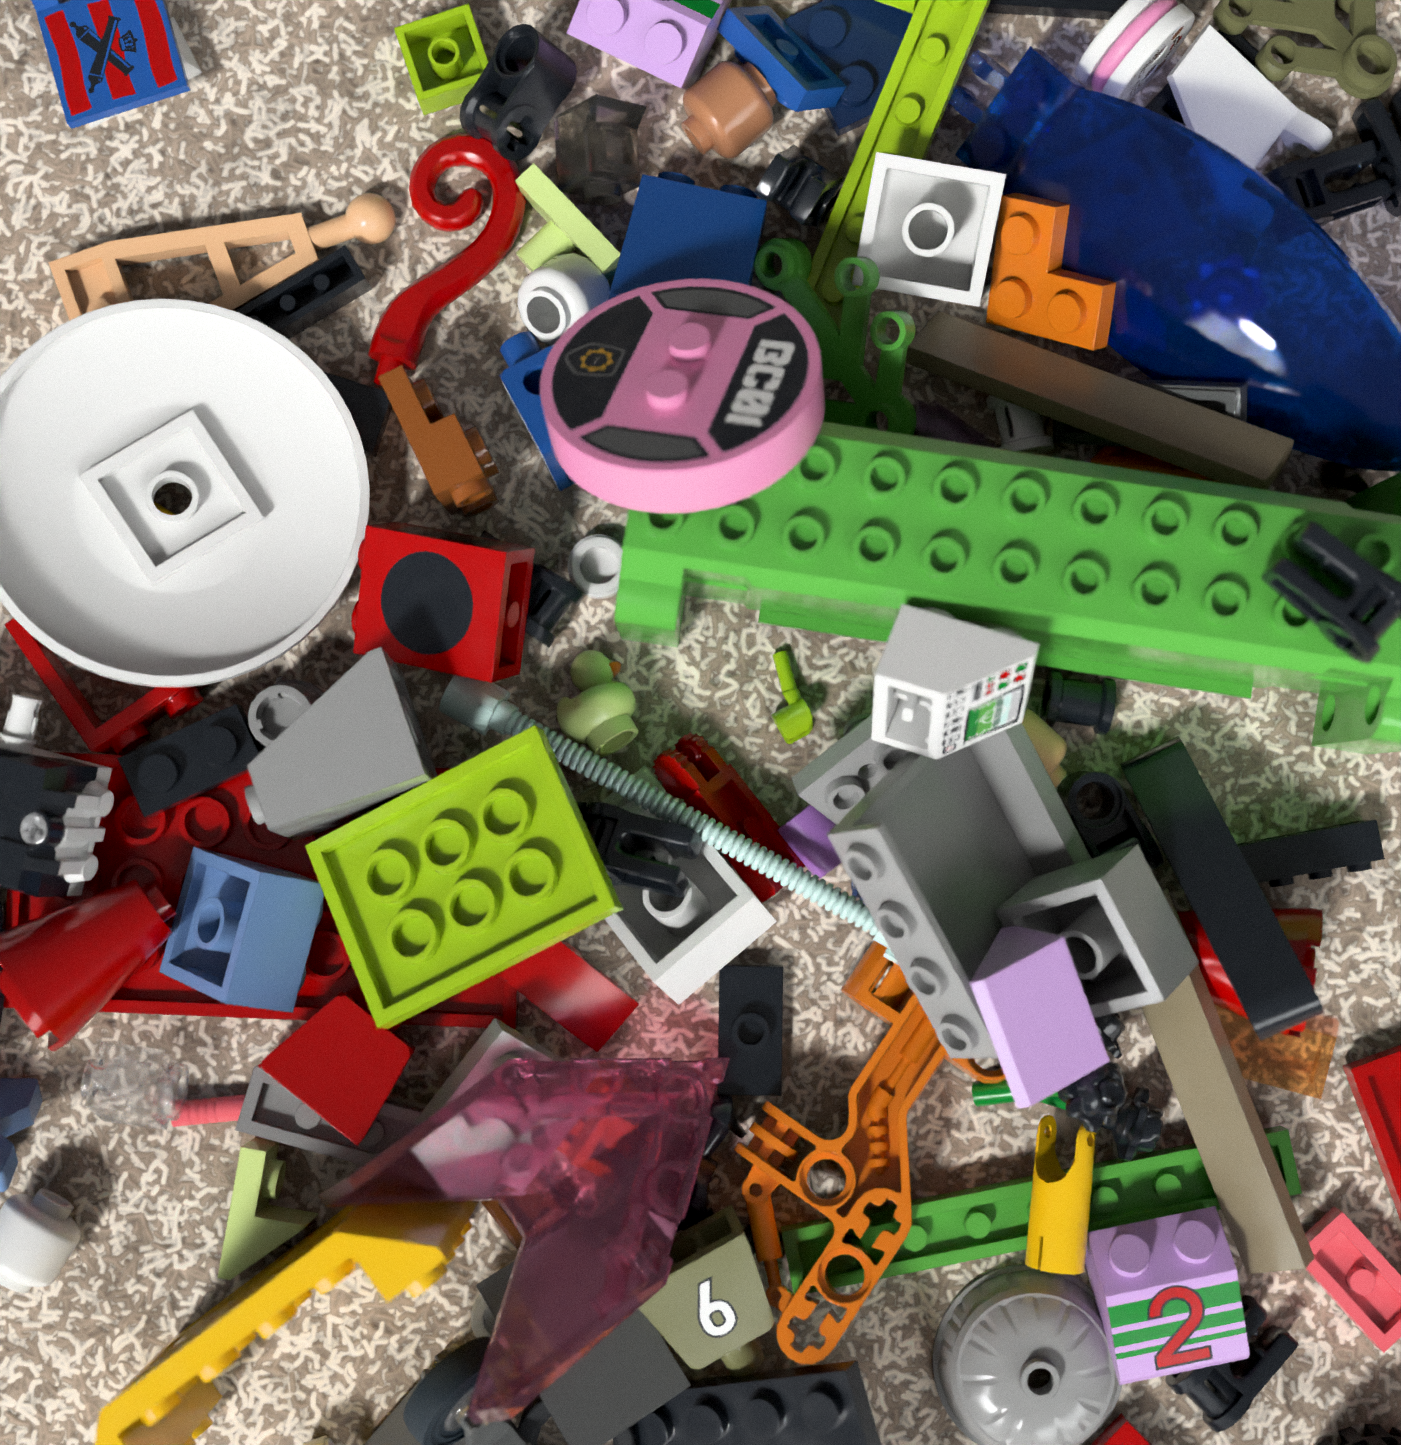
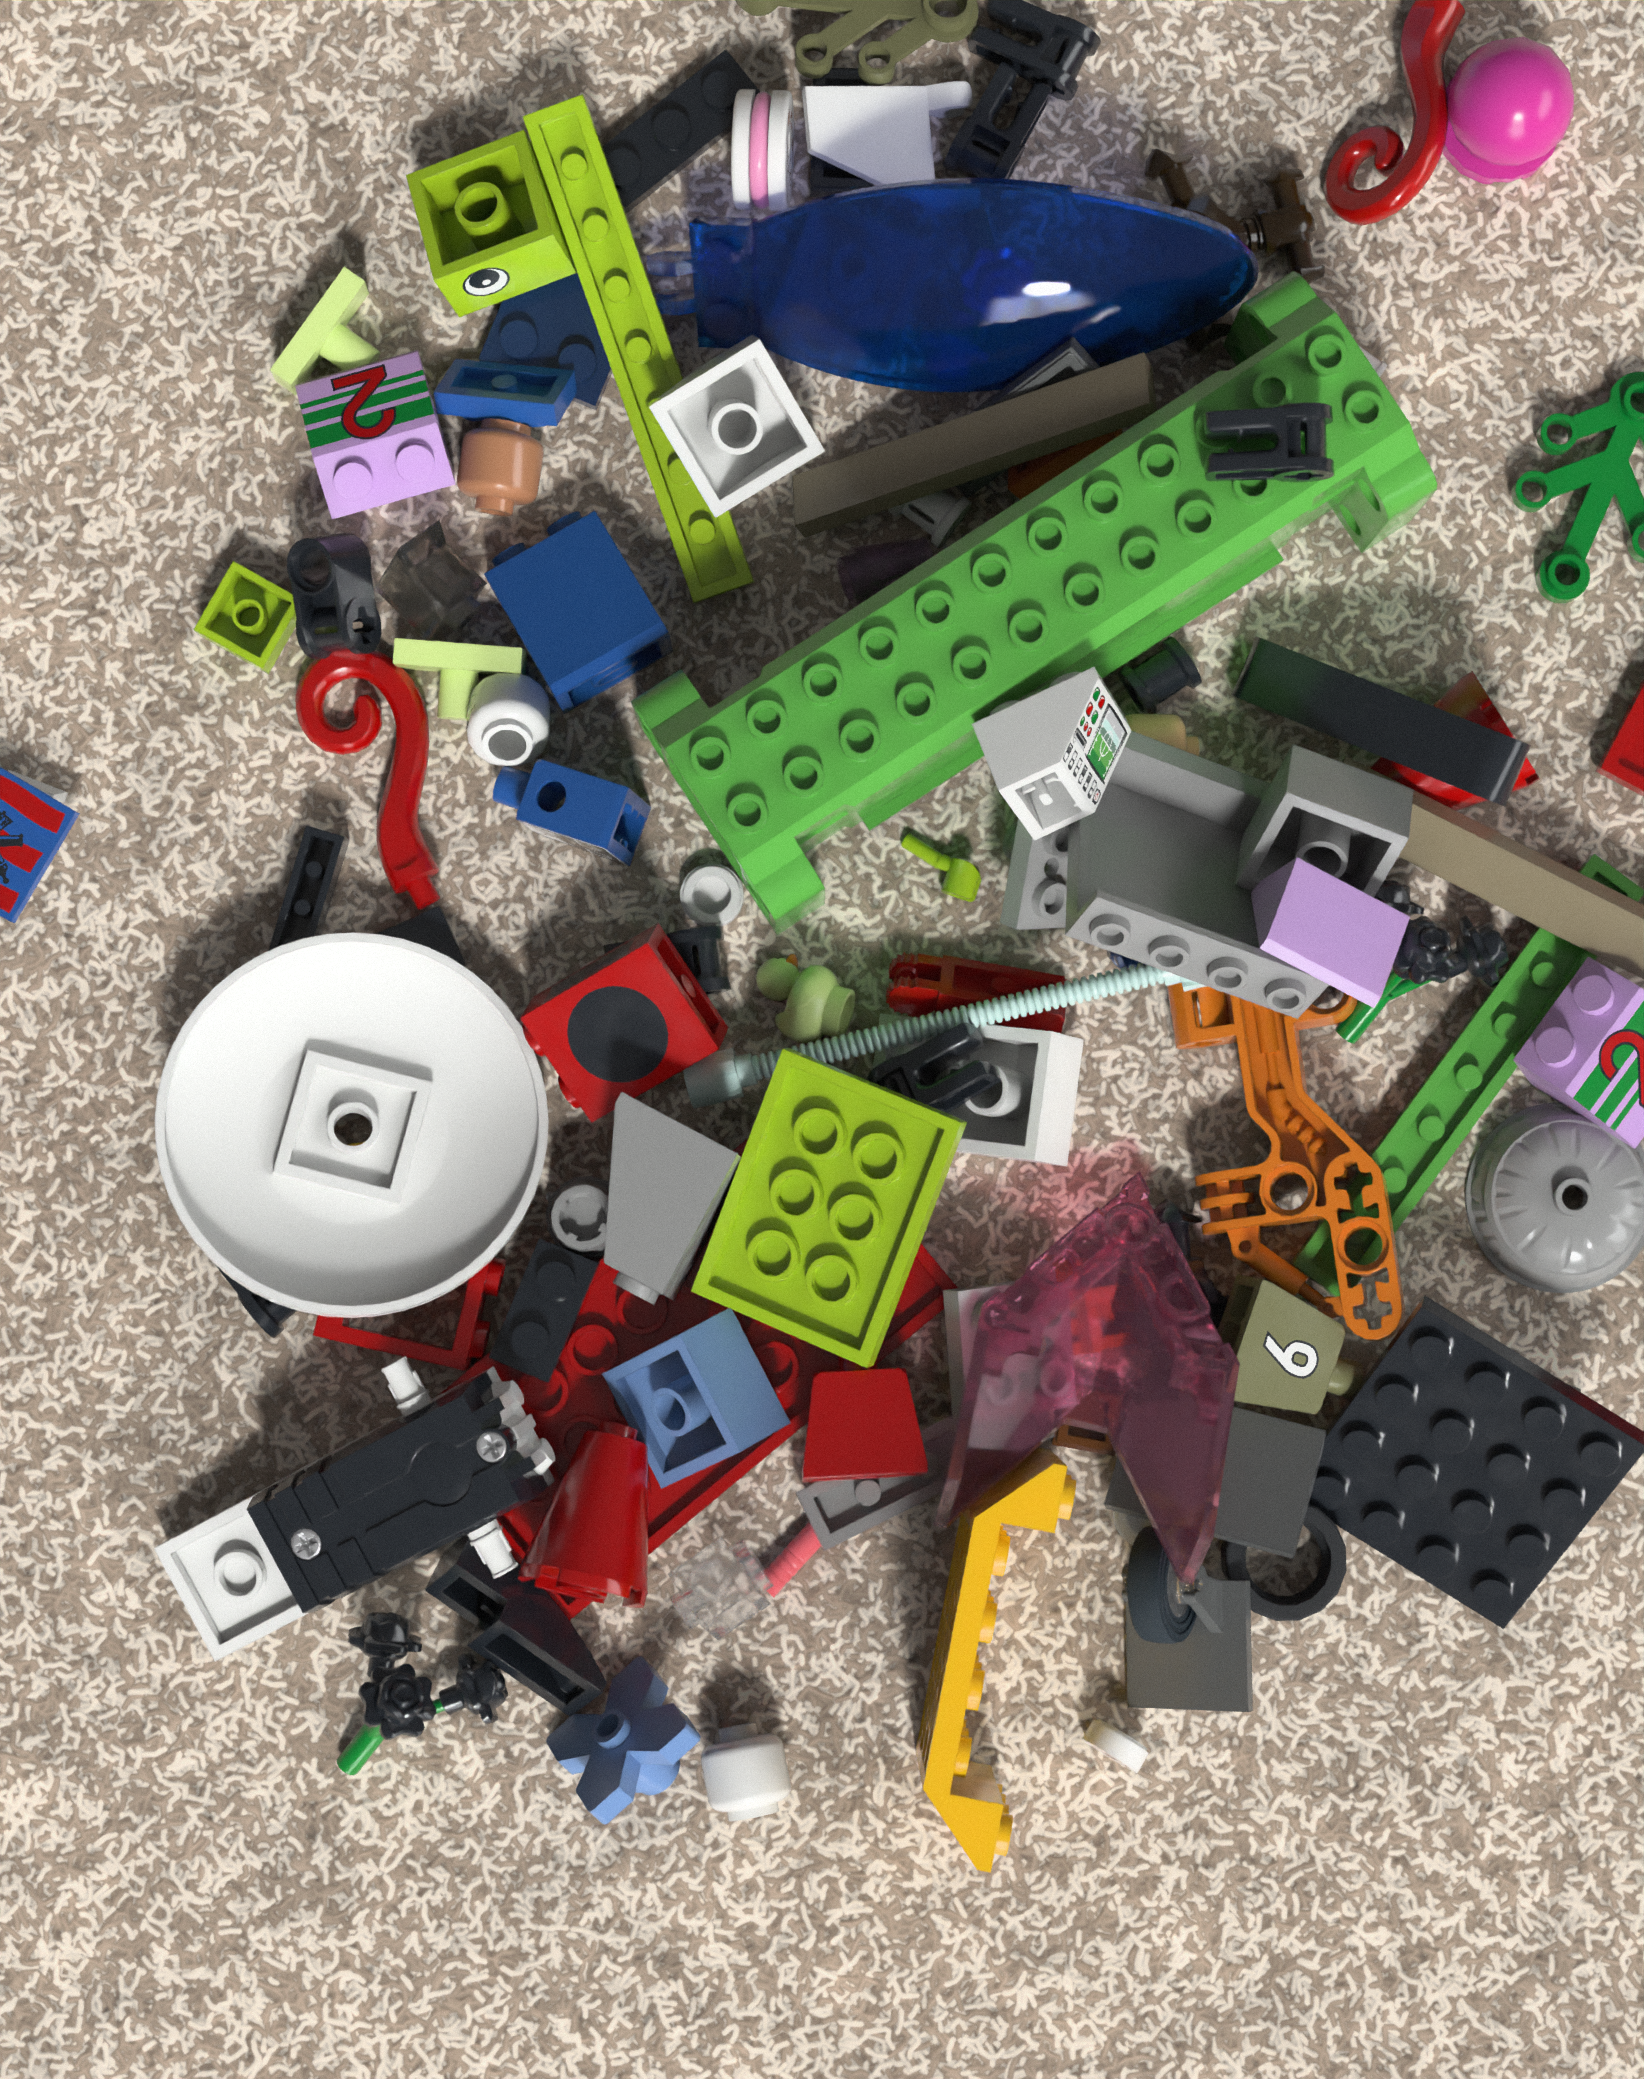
camera: 45 degrees left, 0 degrees up
(97, 280) = (147, 1028): light nougat plate -> none
(252, 1223) = (904, 1613): yellowish green slope -> none
(450, 457) = (533, 911): dark orange plate -> none
(572, 993) = (981, 1228): red slope -> none
(683, 395) = (681, 713): piece -> none
(751, 1029) = (1136, 1137): black plate -> none
(800, 186) = (609, 477): black piece -> none
(808, 838) = (1056, 955): medium lavender piece -> none
(844, 348) = (750, 574): bright green plant -> none
(1030, 287) = (852, 400): orange plate -> none
(1059, 1203) = (1473, 1054): yellow piece -> none
(1114, 824) = (1266, 741): black piece -> none
(1280, 1060) = (1542, 808): clear orange tile -> none
(1314, 852) = (1431, 634): black piece -> none

